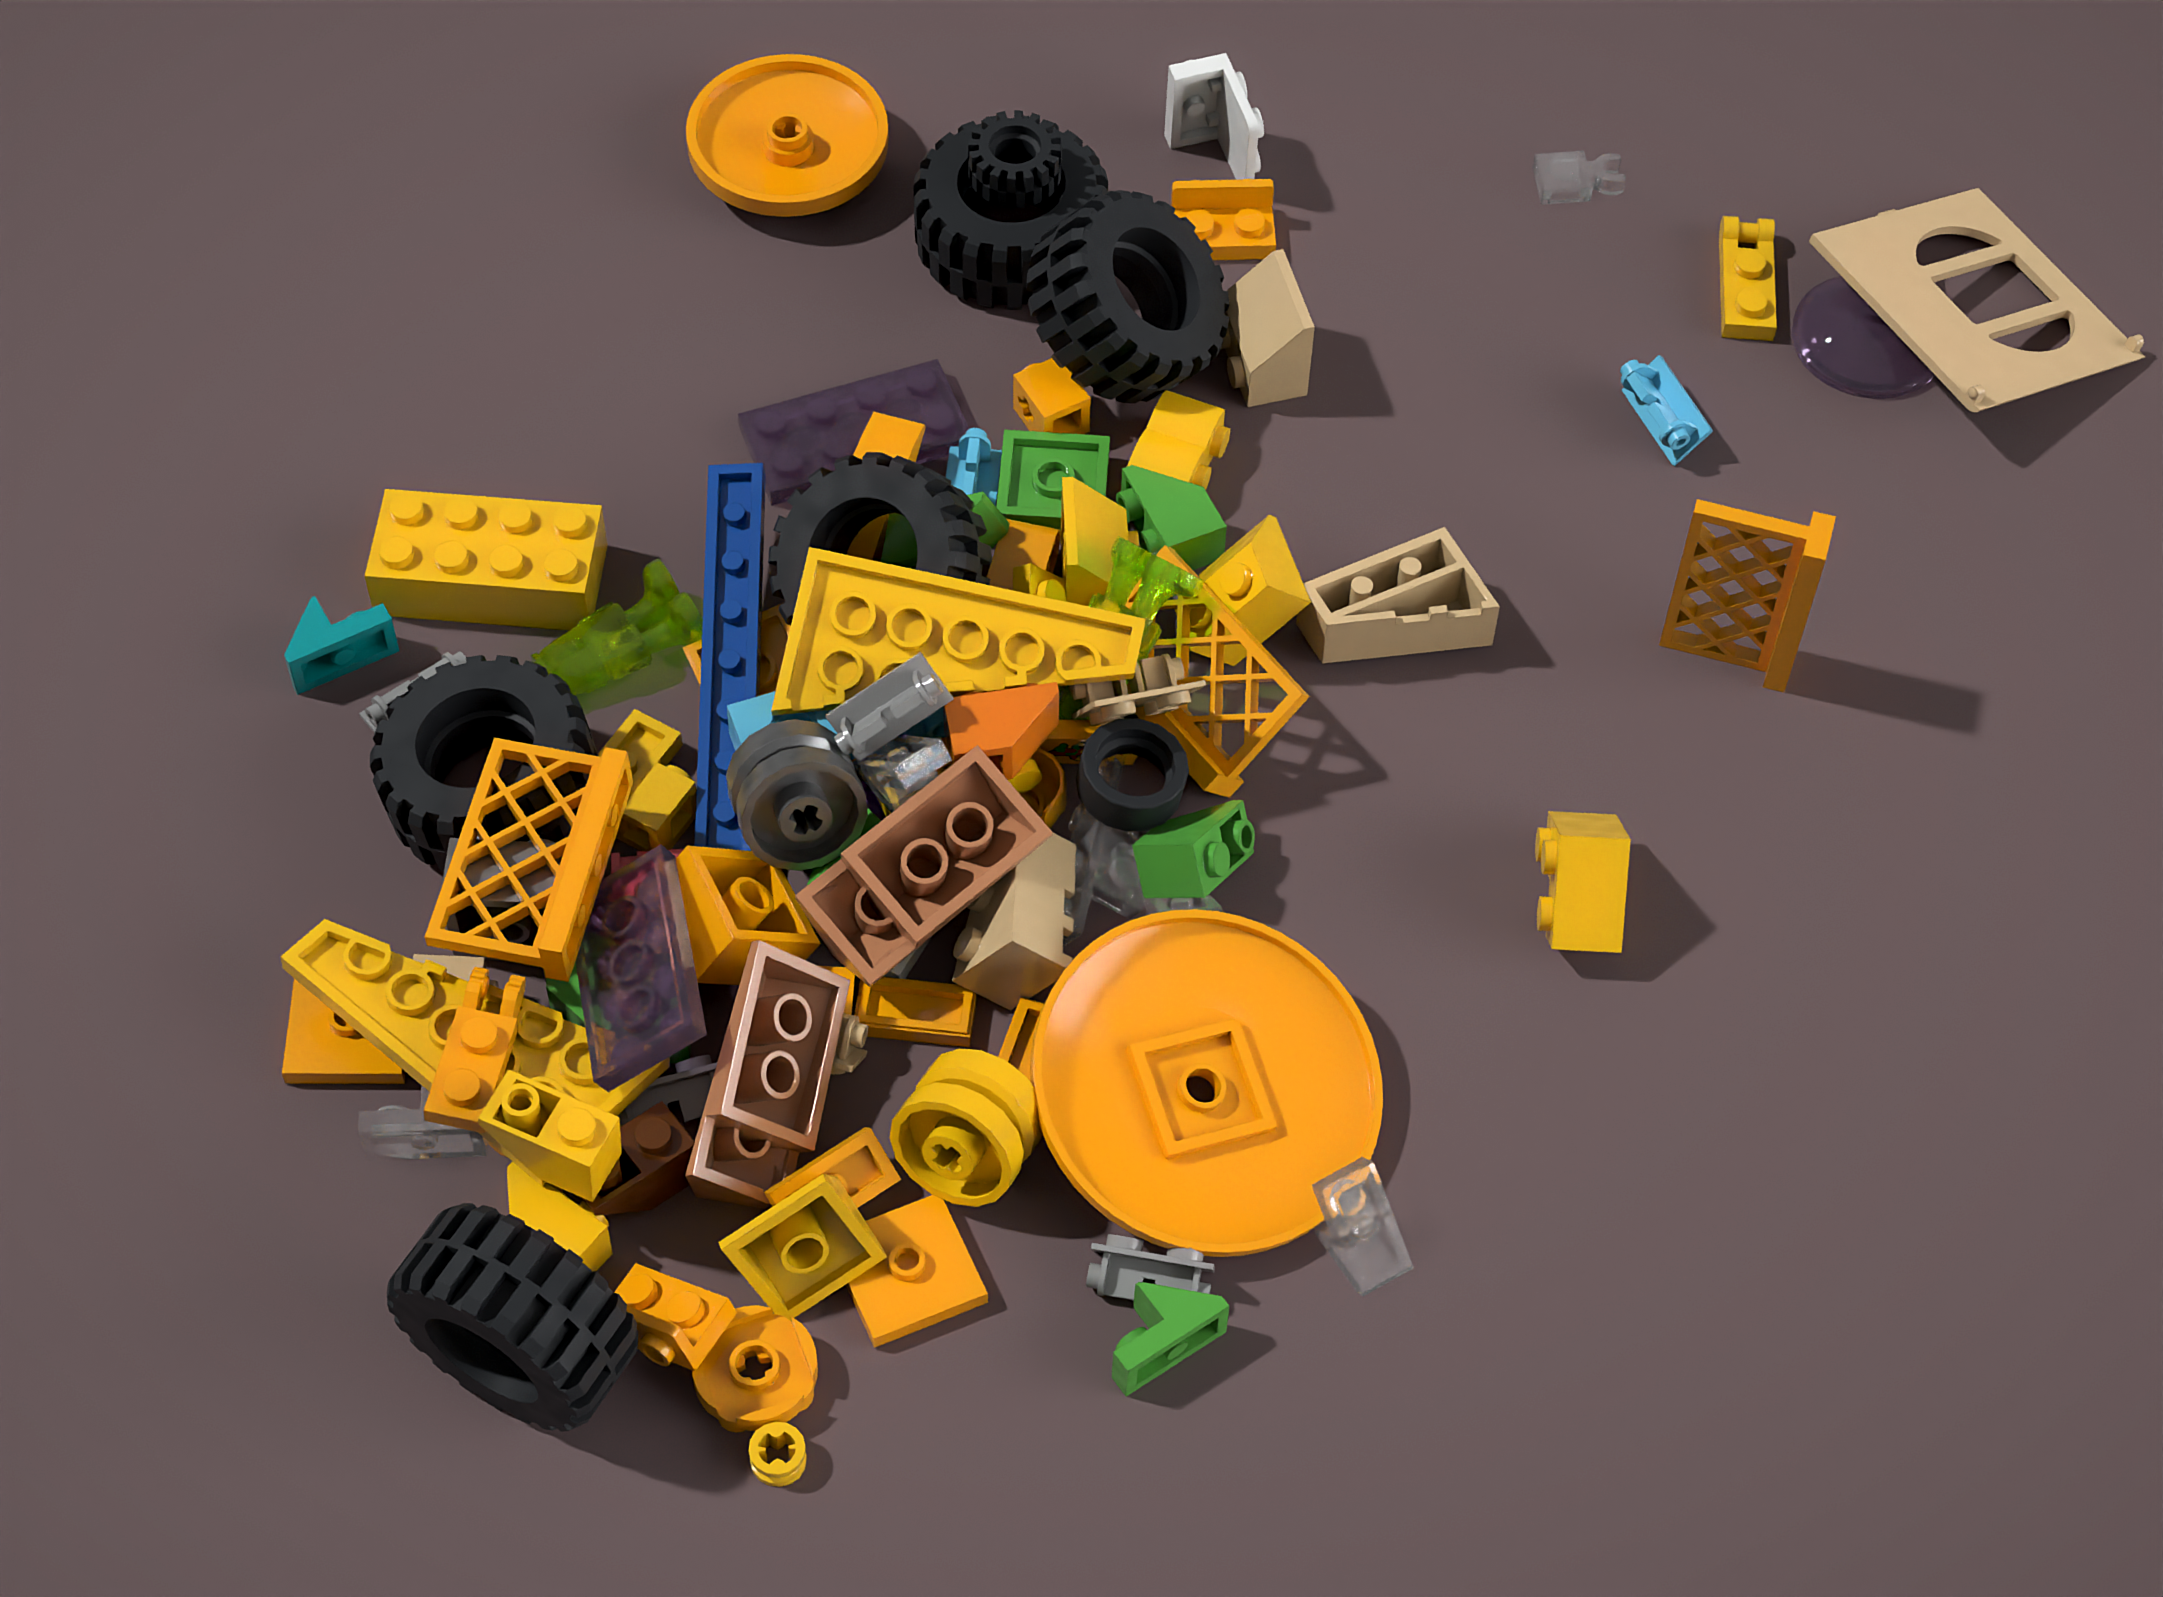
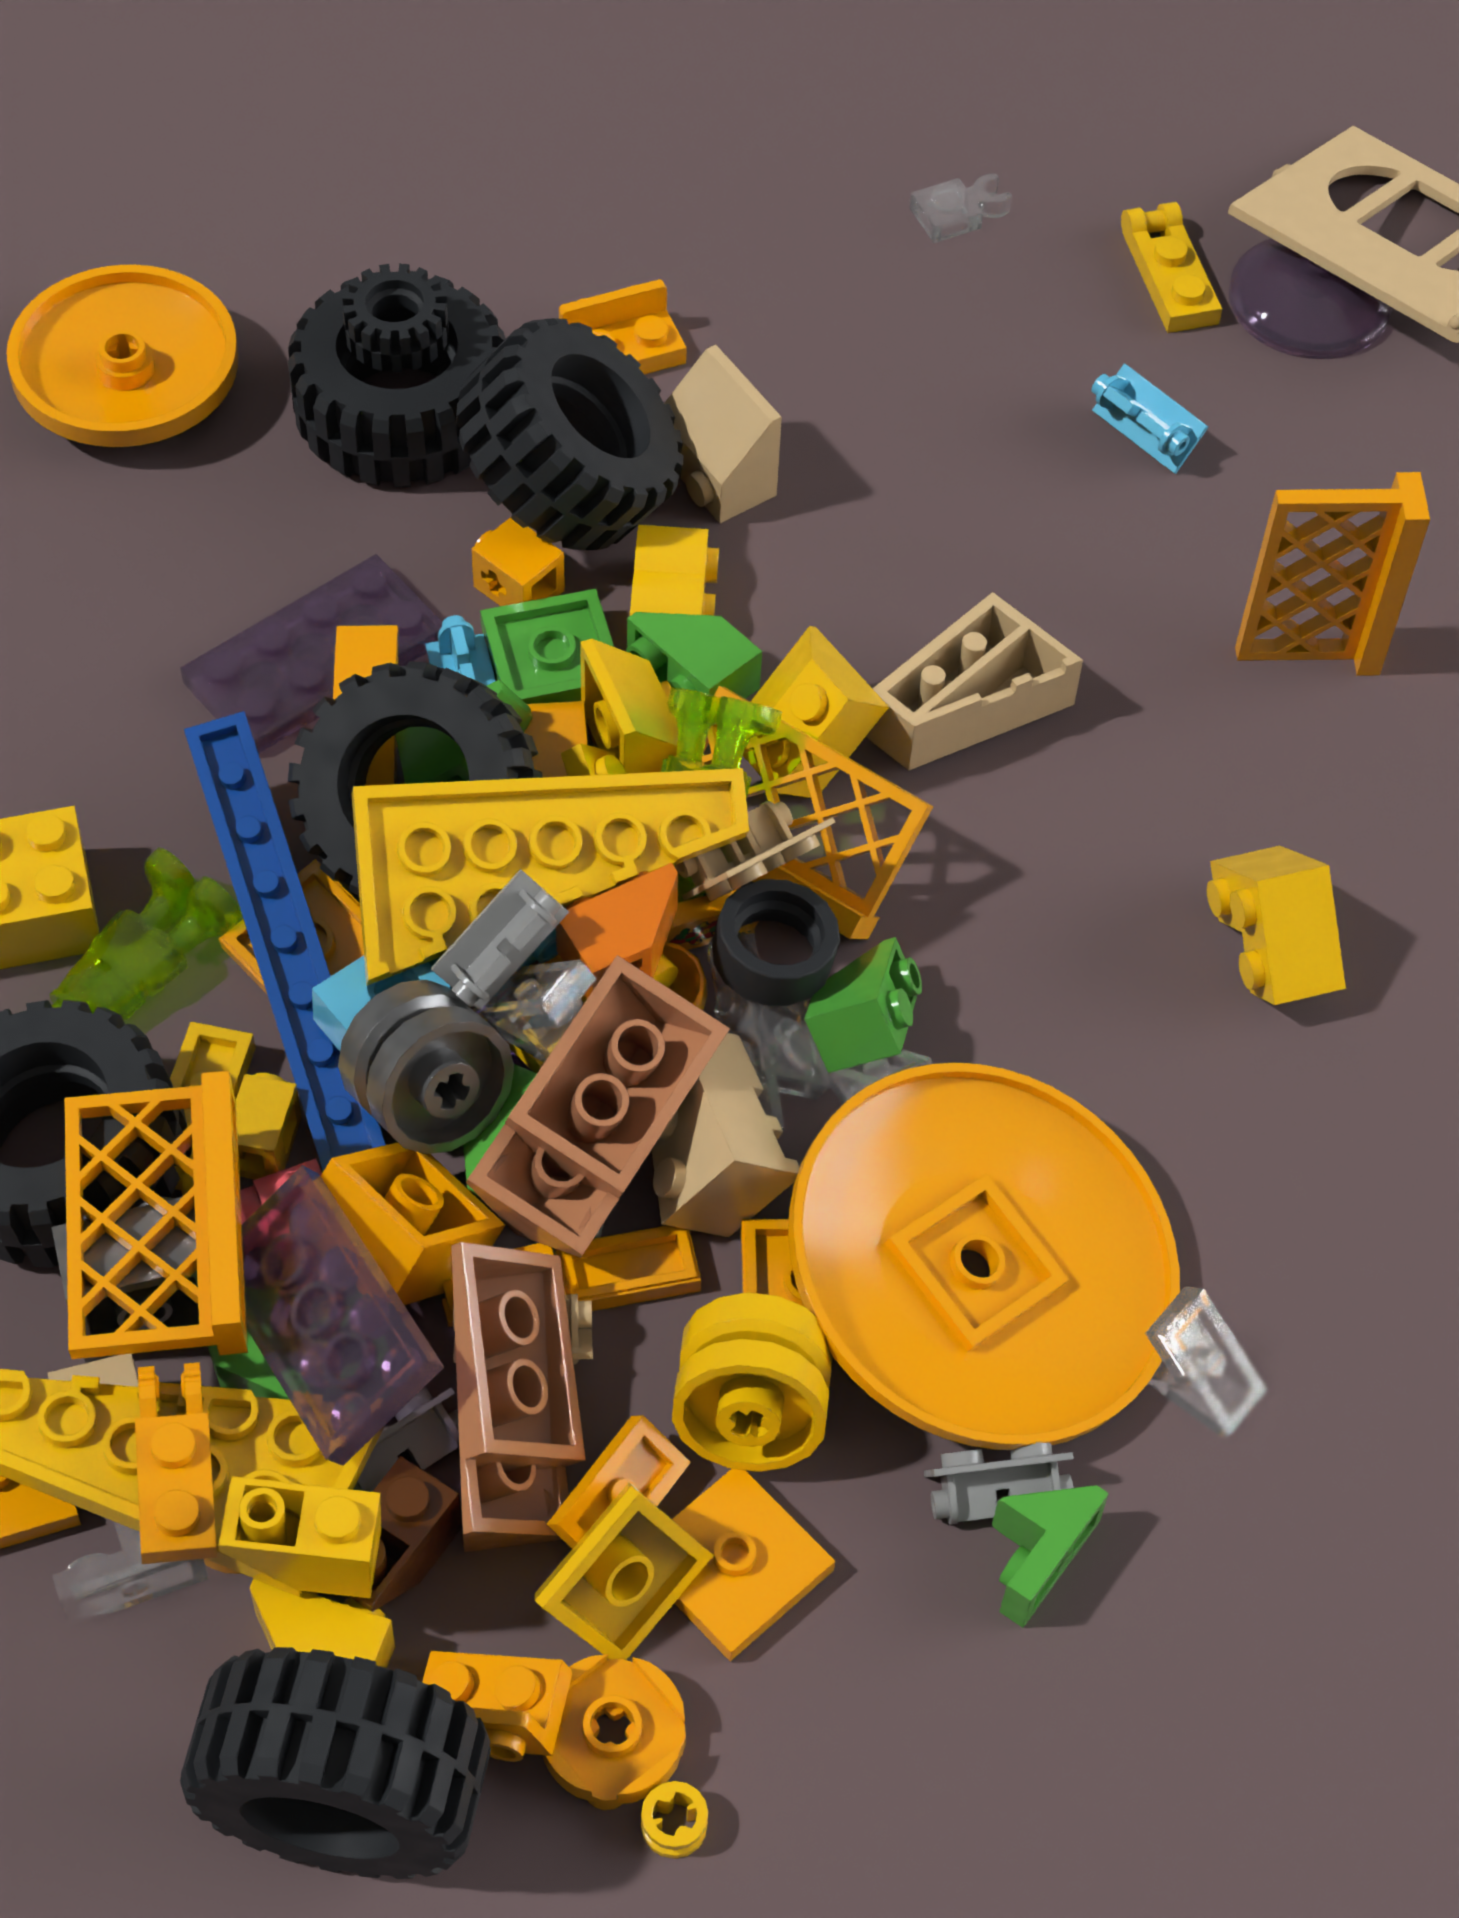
camera: 20 degrees left, 0 degrees up
(1211, 103) = (572, 214): white bracket -> none

